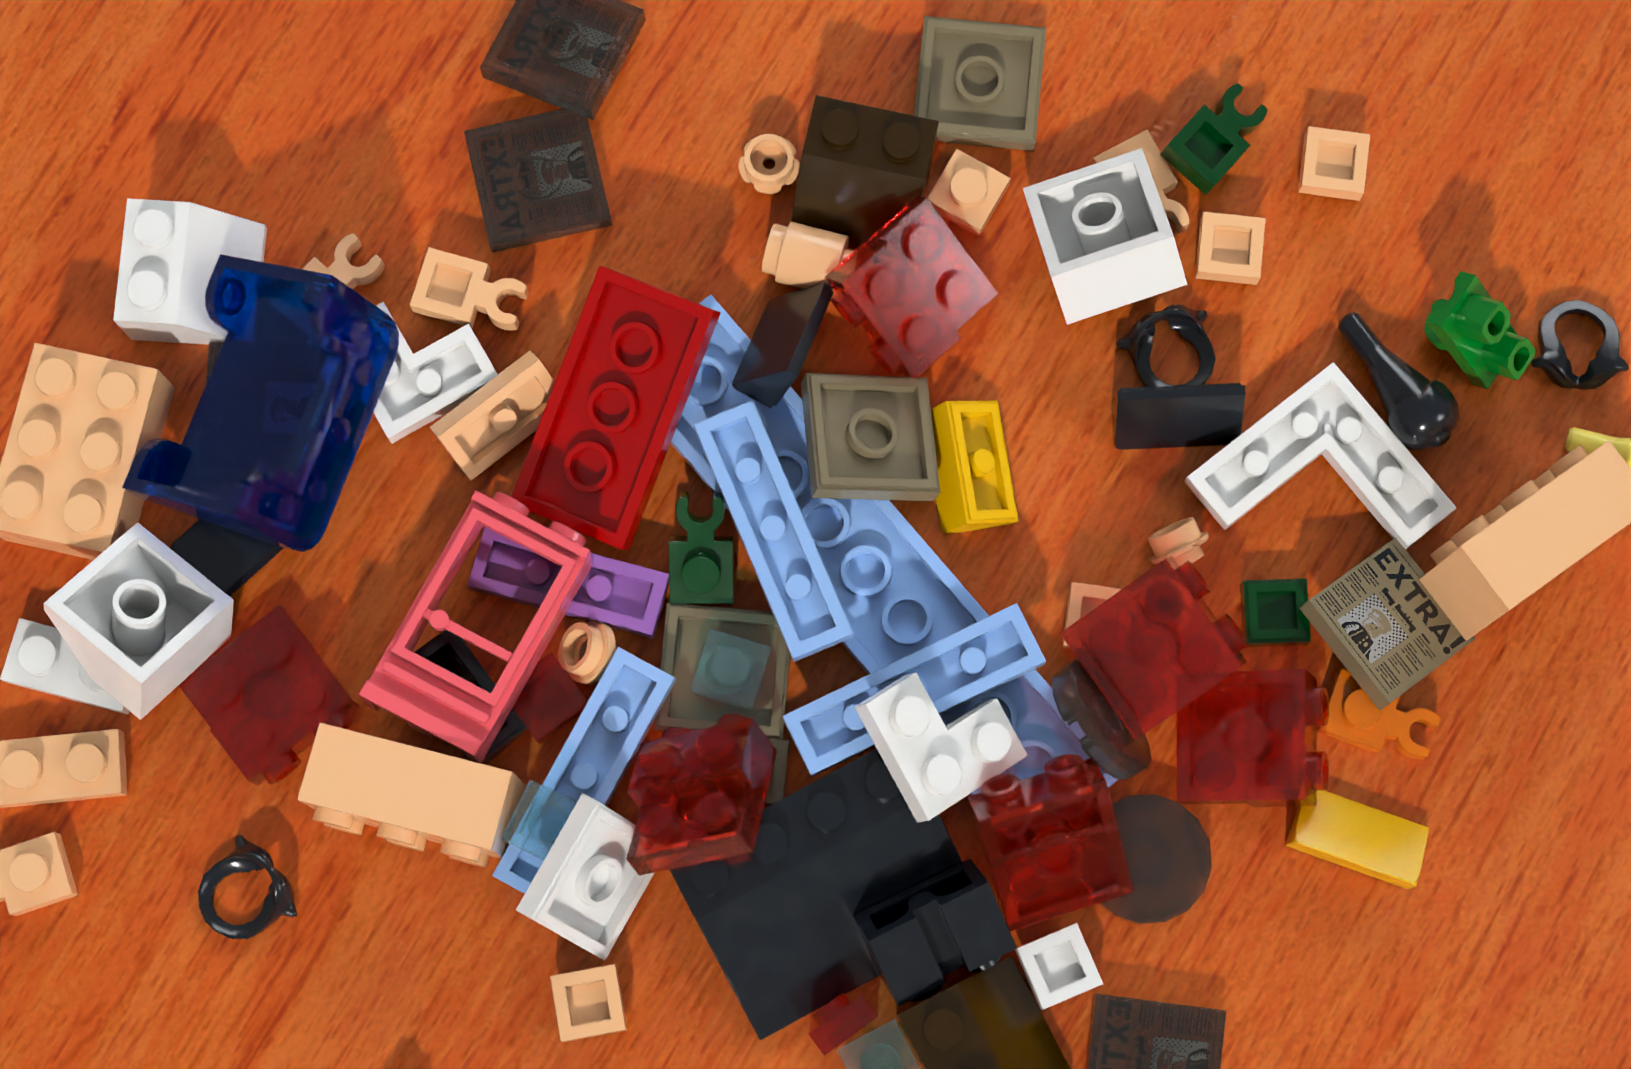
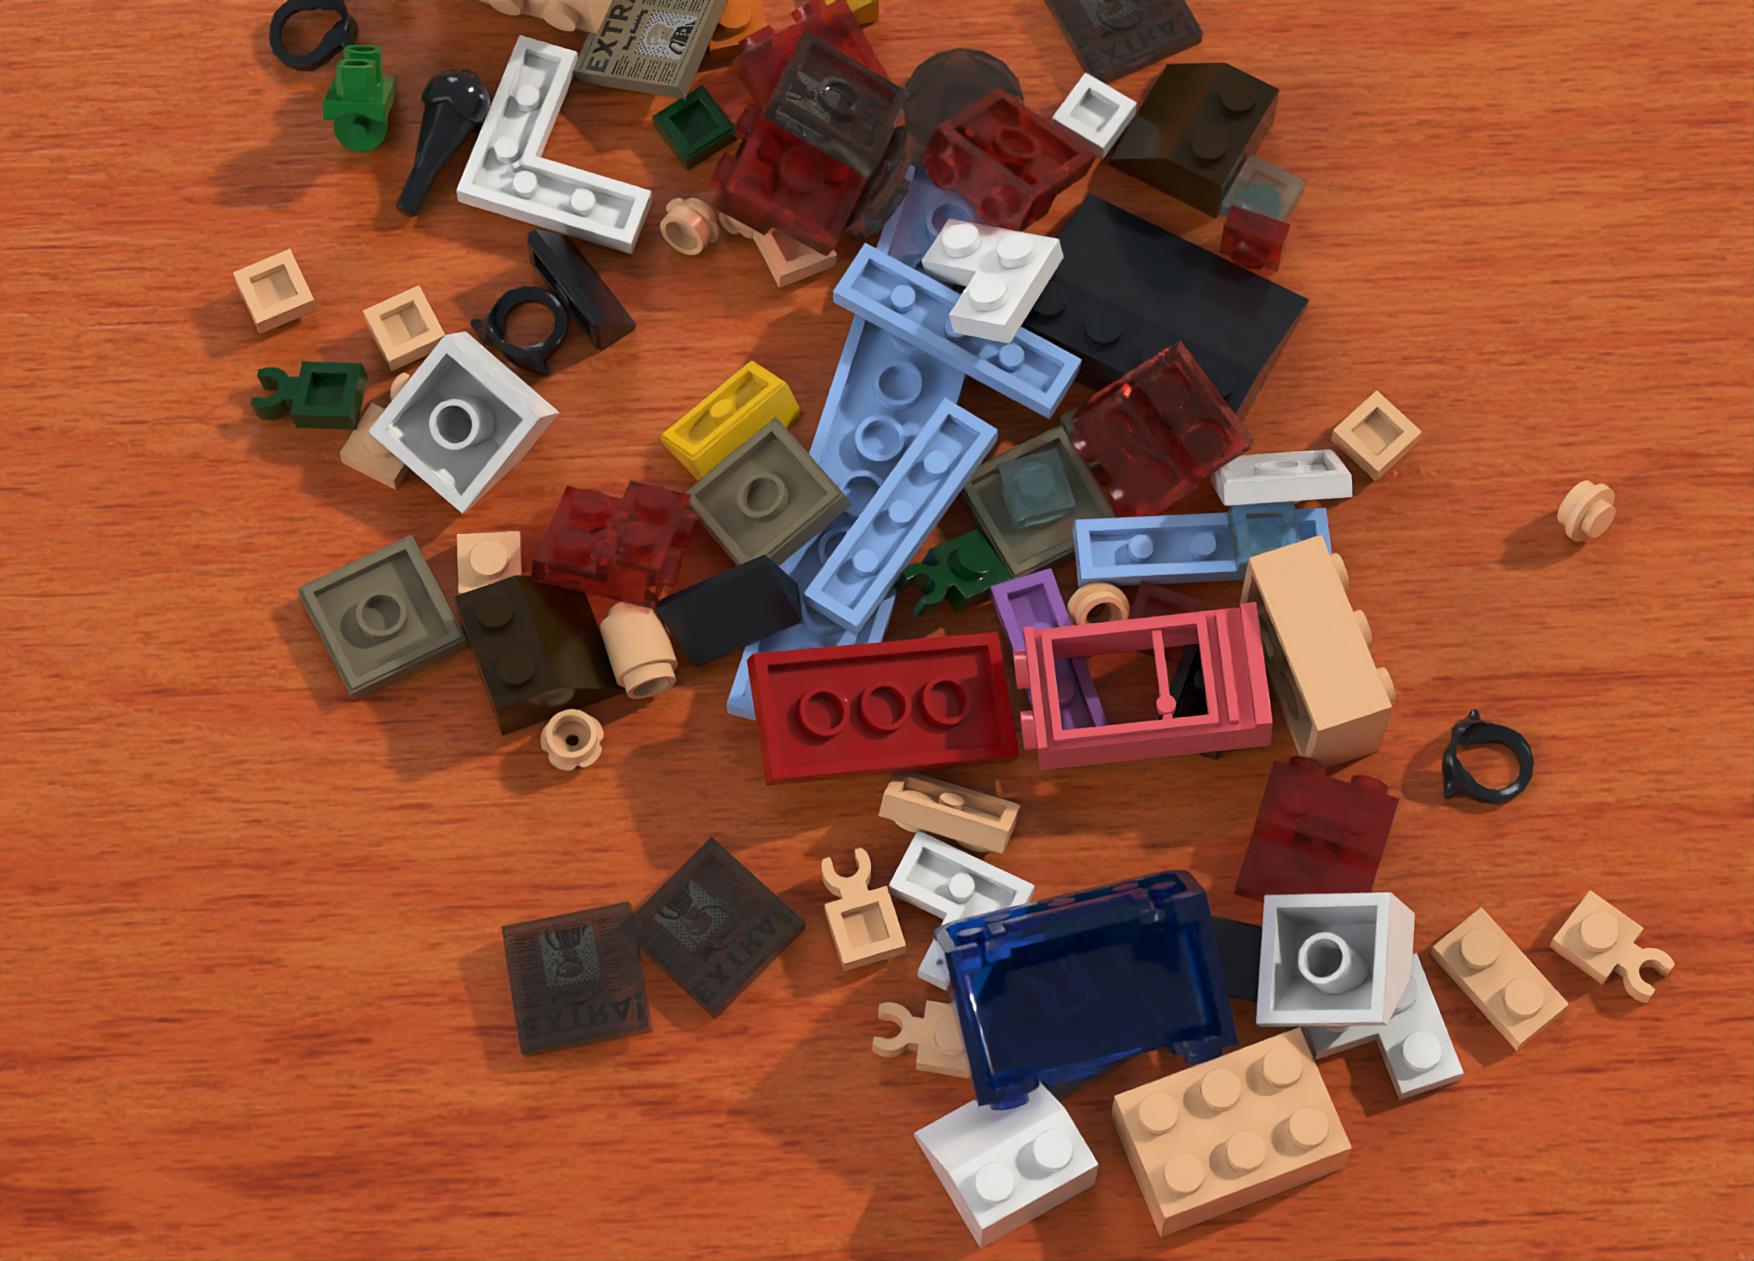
camera: 125 degrees left, 10 degrees down
(934, 931) = (1133, 210): black brick -> none
(1195, 718) = (836, 104): none -> clear smoke tile

